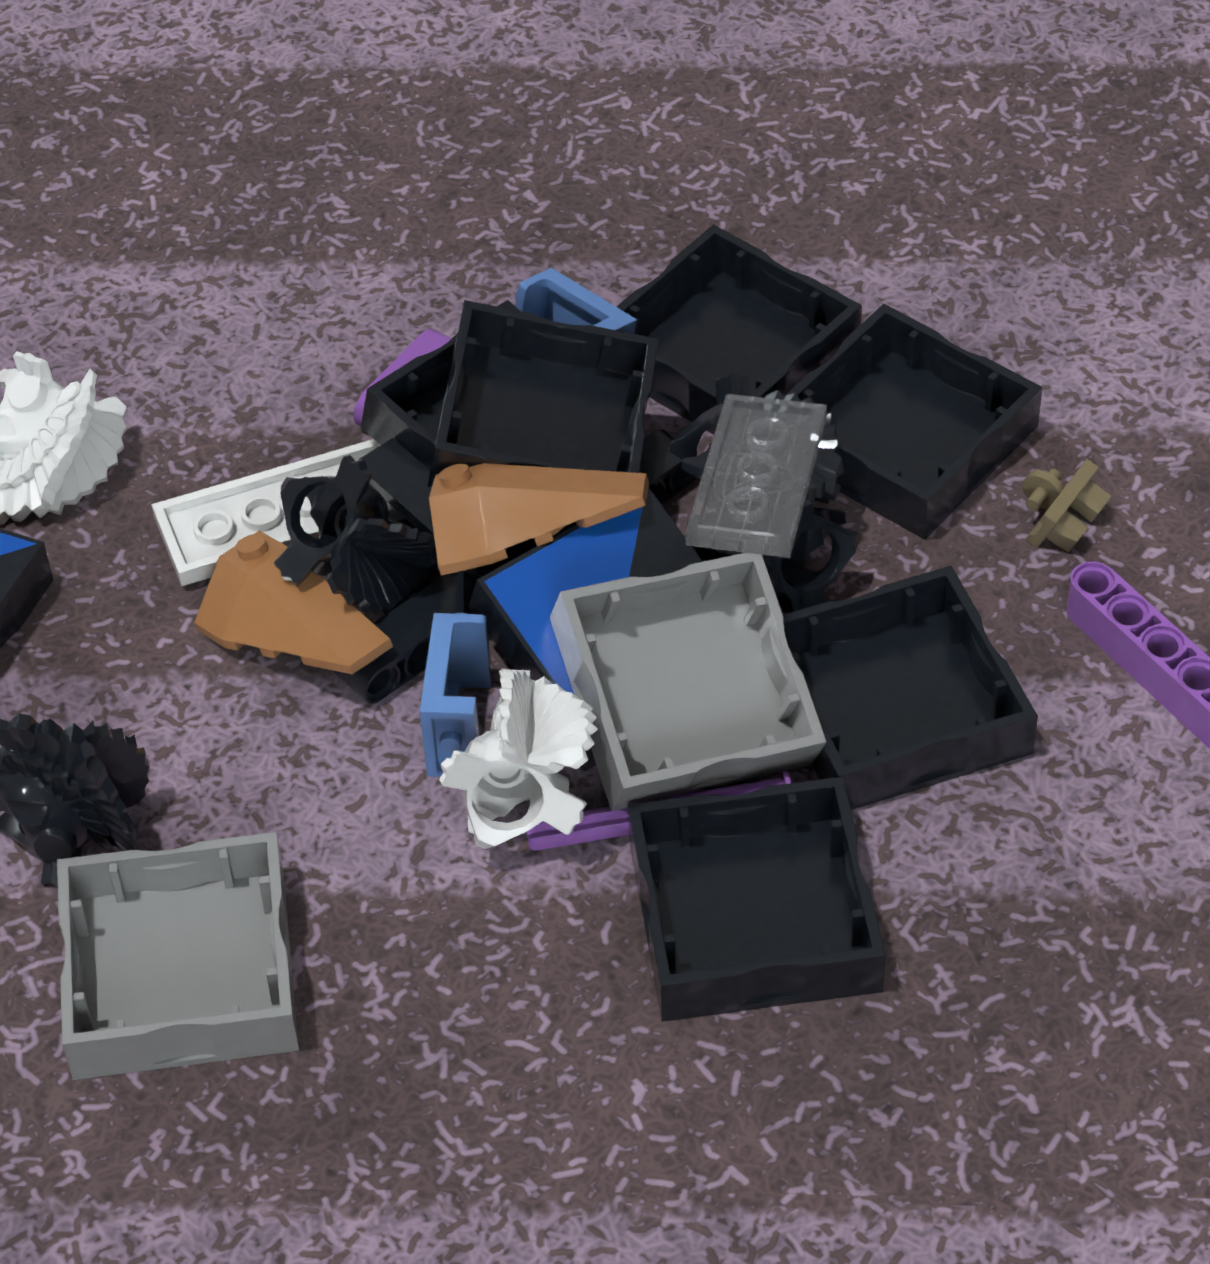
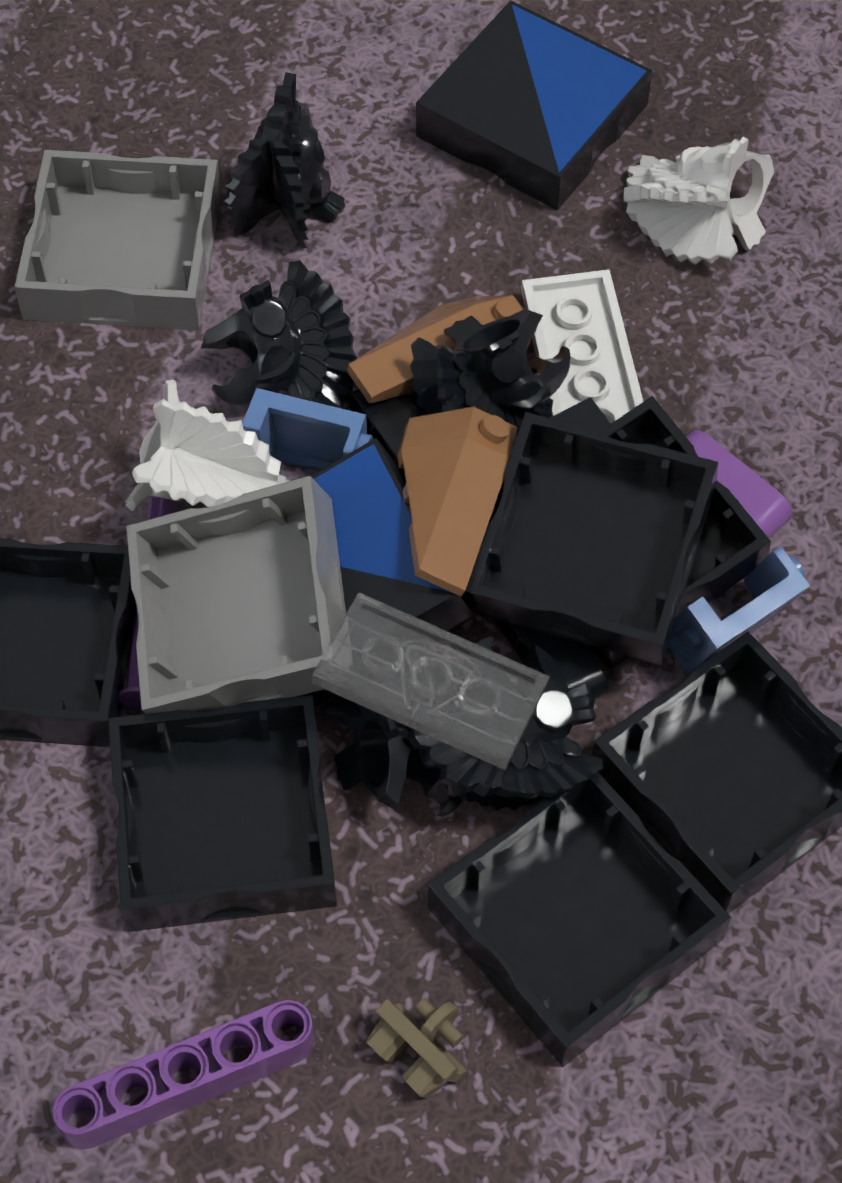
camera: 100 degrees right, 10 degrees up
(320, 743) = (293, 341): none -> black piece

